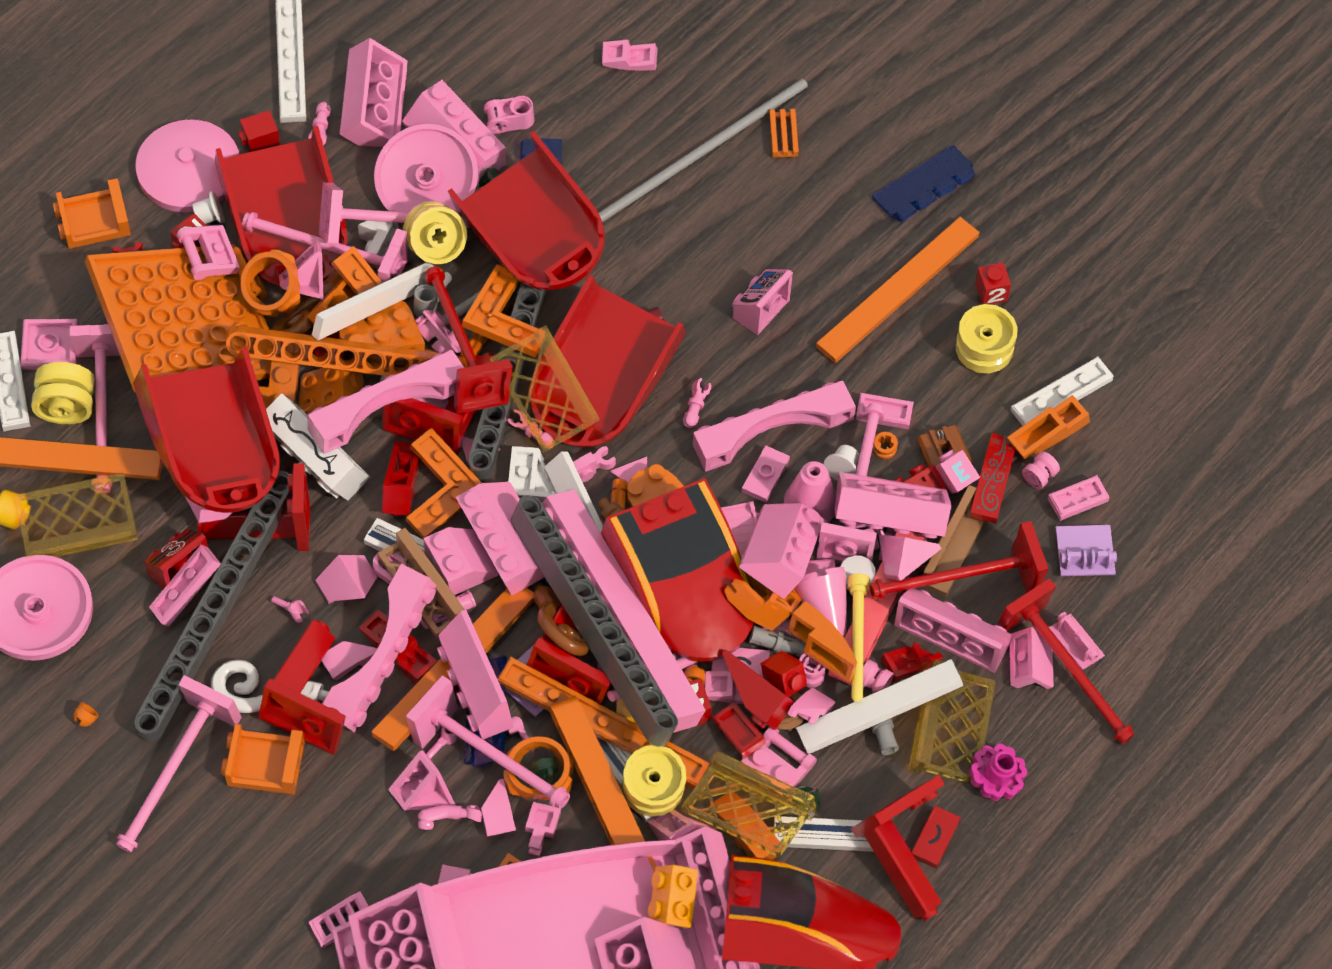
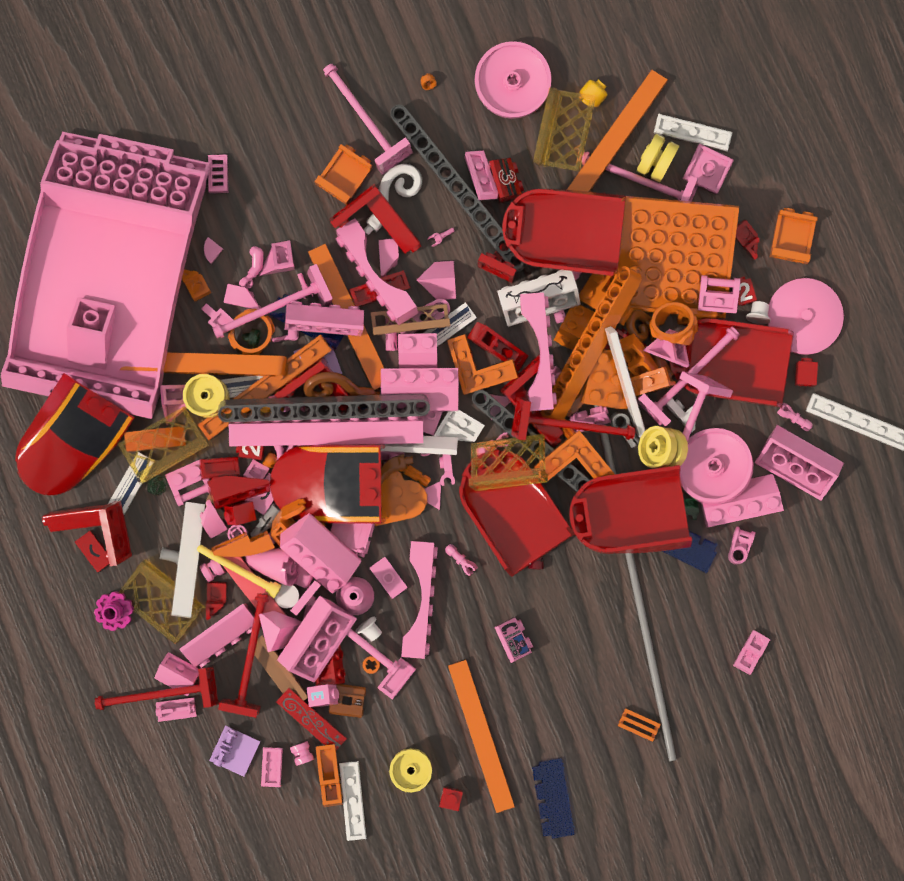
camera: 120 degrees right, 25 degrees up
(673, 895) = (120, 365): light orange bracket -> none

